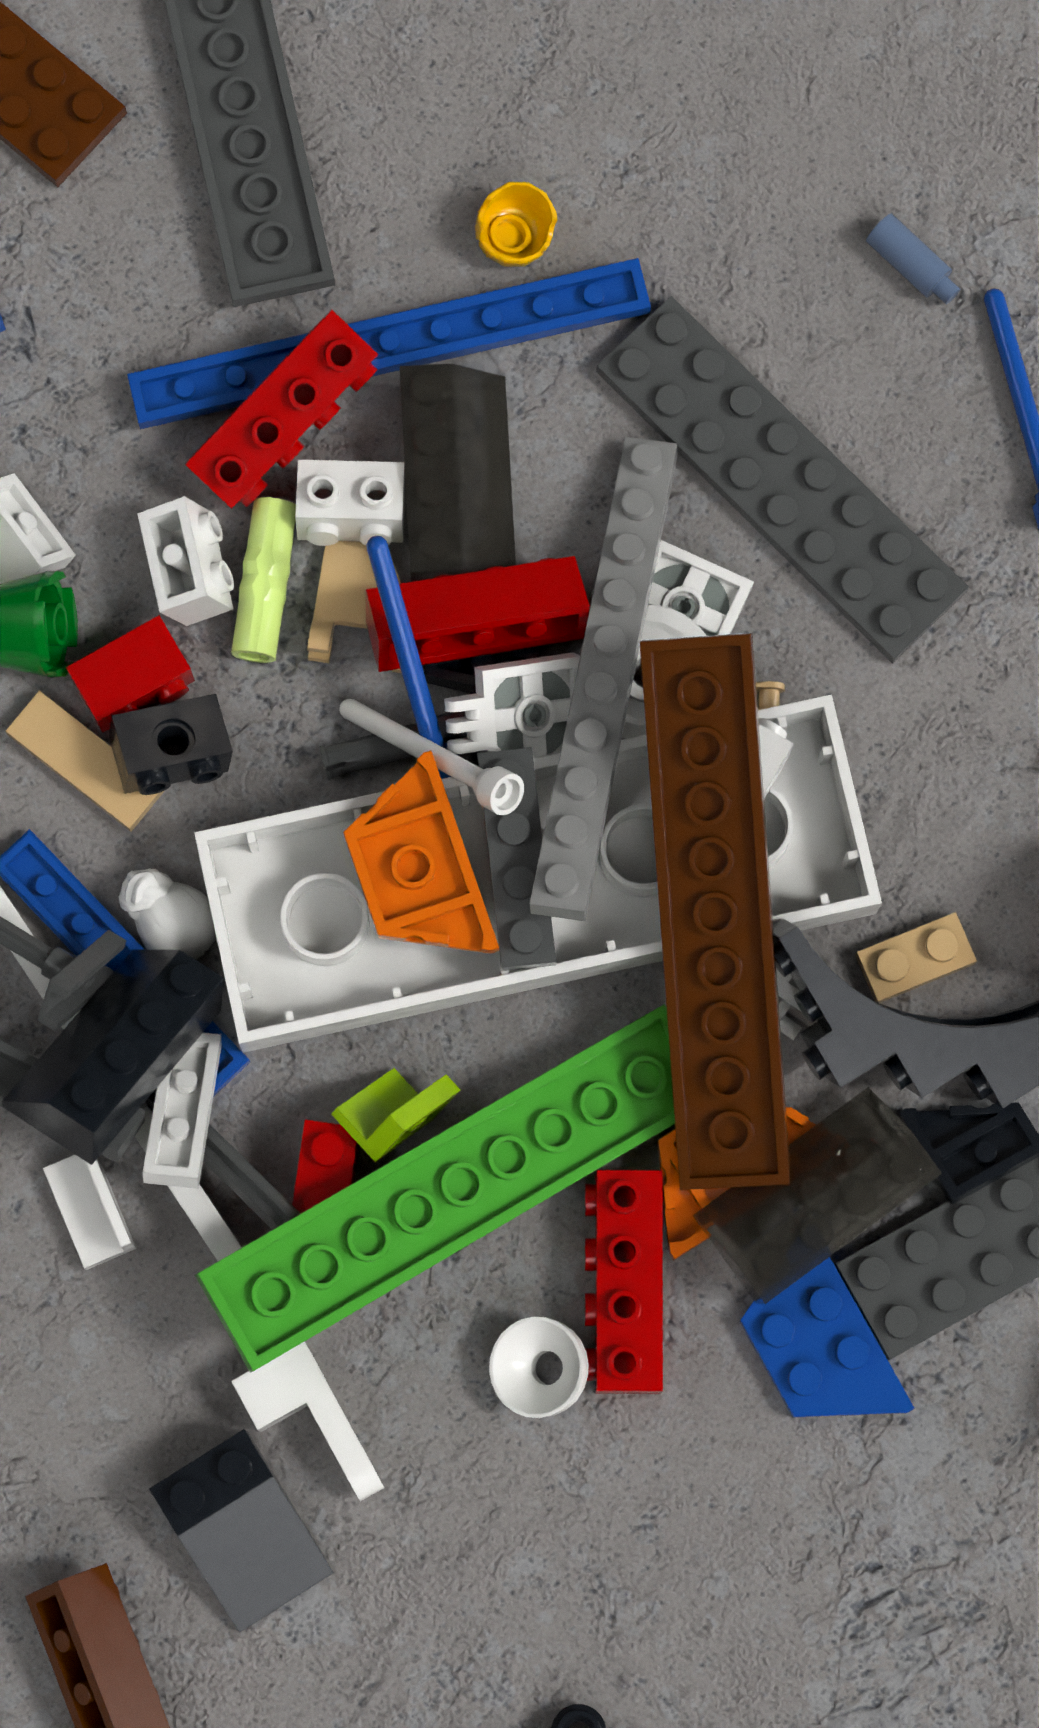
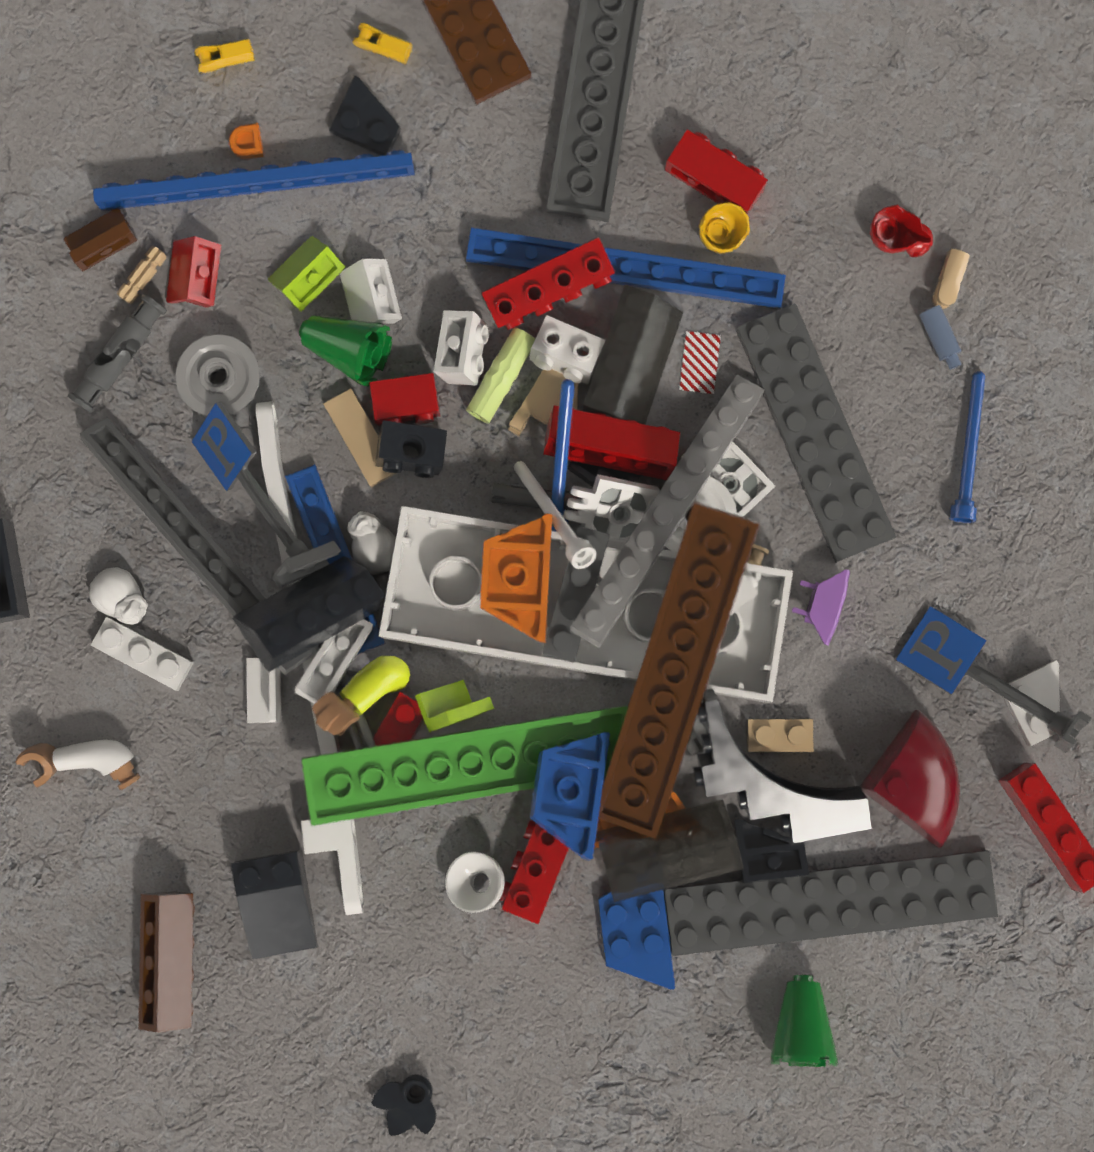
camera: 20 degrees right, 5 degrees up
(249, 1134) = (367, 686): none -> neon yellow piece
(467, 146) = (715, 172): none -> red brick
(561, 442) = (700, 362): none -> sticker
(631, 1165) = (570, 792): none -> blue wing
(784, 125) = (899, 231): none -> red hair
(890, 167) = (950, 278): none -> tan bar
(903, 729) = (825, 604): none -> medium lavender piece

